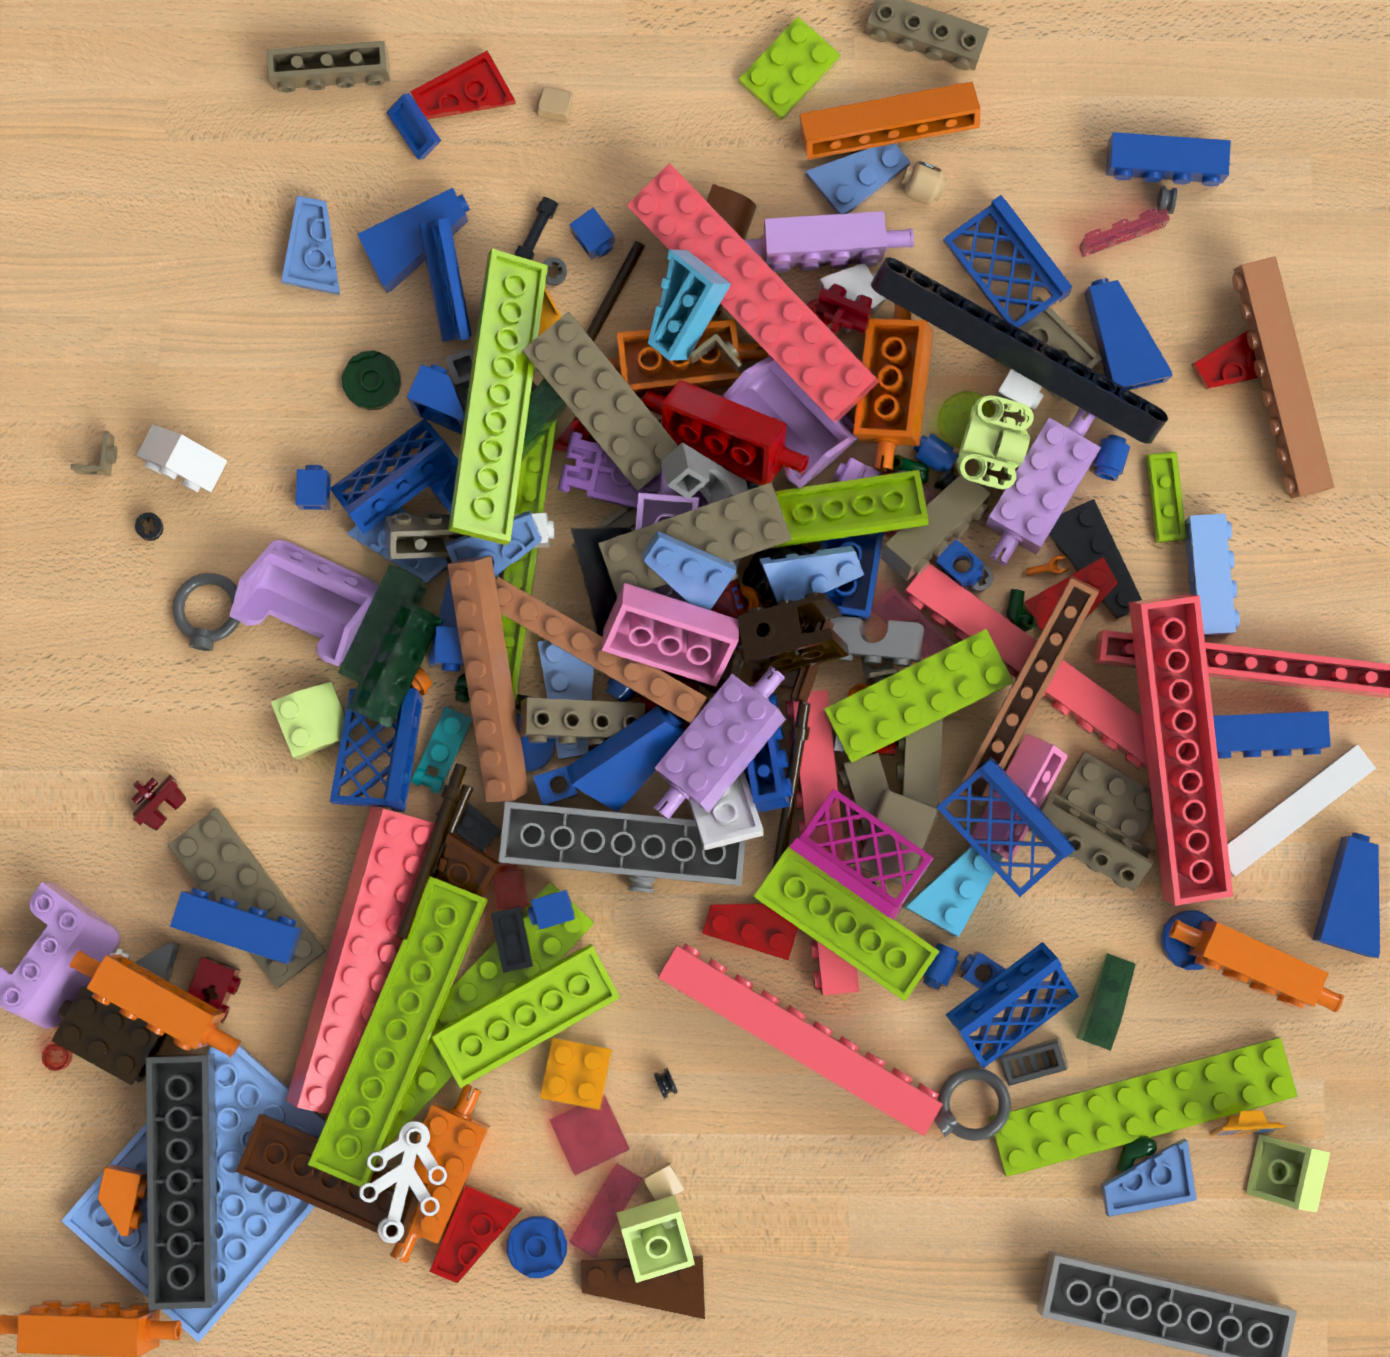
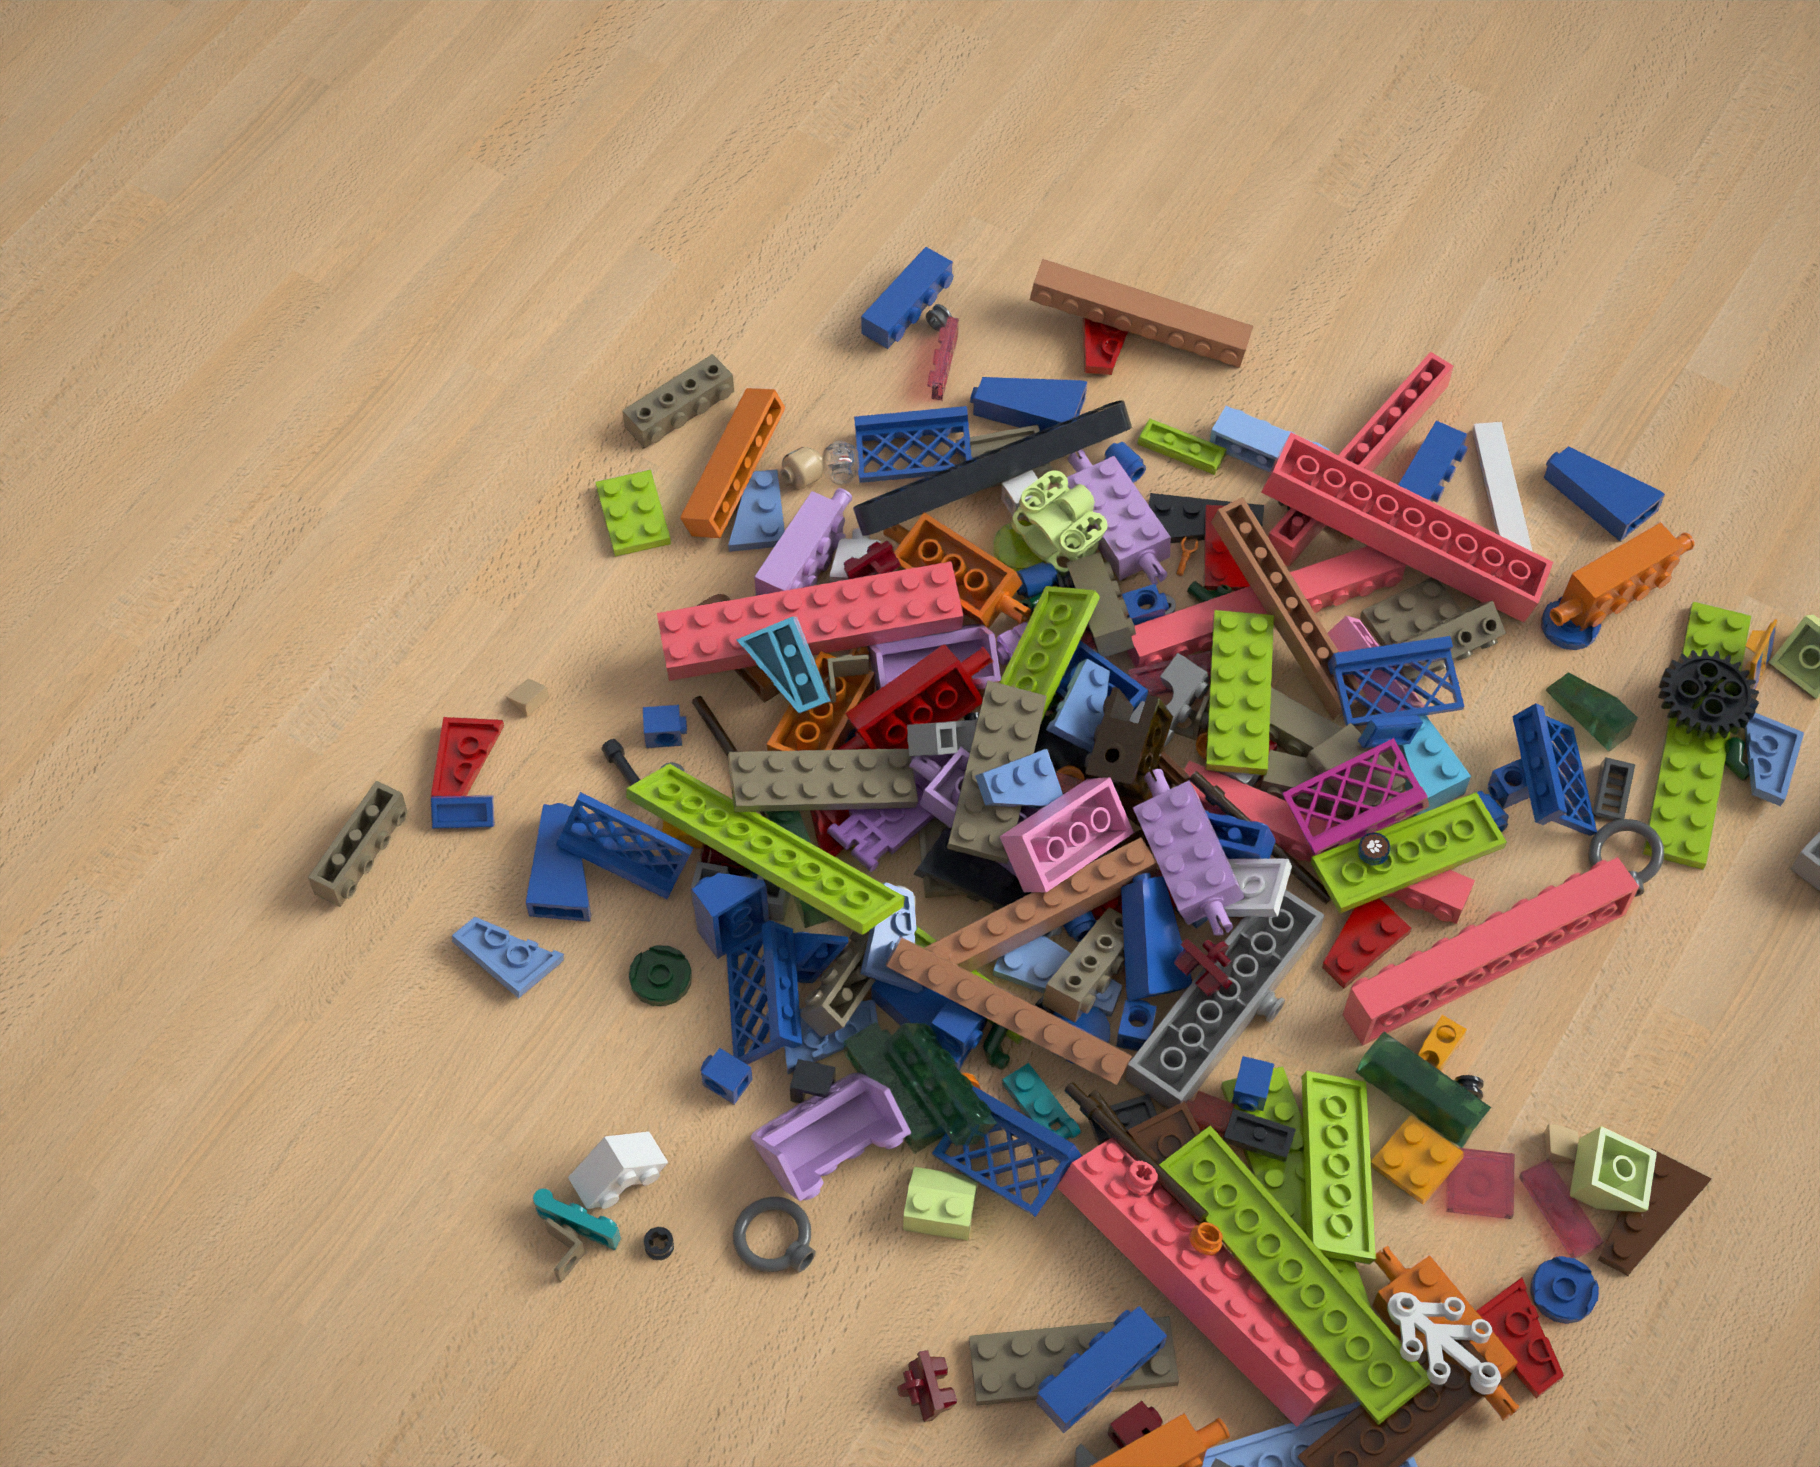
camera: 55 degrees left, 25 degrees down
(126, 450) = (596, 1229): none -> teal plate
(347, 559) = (811, 1079): none -> black panel
(390, 953) = (1206, 1238): none -> orange plate
(414, 866) = (1137, 1184): none -> coral bush
(629, 817) = (1213, 977): none -> dark red hips
(637, 1047) = (1422, 1089): none -> clear green brick
(687, 1040) = (1442, 1042): none -> light orange leg
(824, 894) = (1374, 848): none -> tile
(946, 848) = (1384, 729): none -> blue tile
(951, 211) = (840, 462): none -> clear head
(1183, 1073) = (1729, 711): none -> black gear

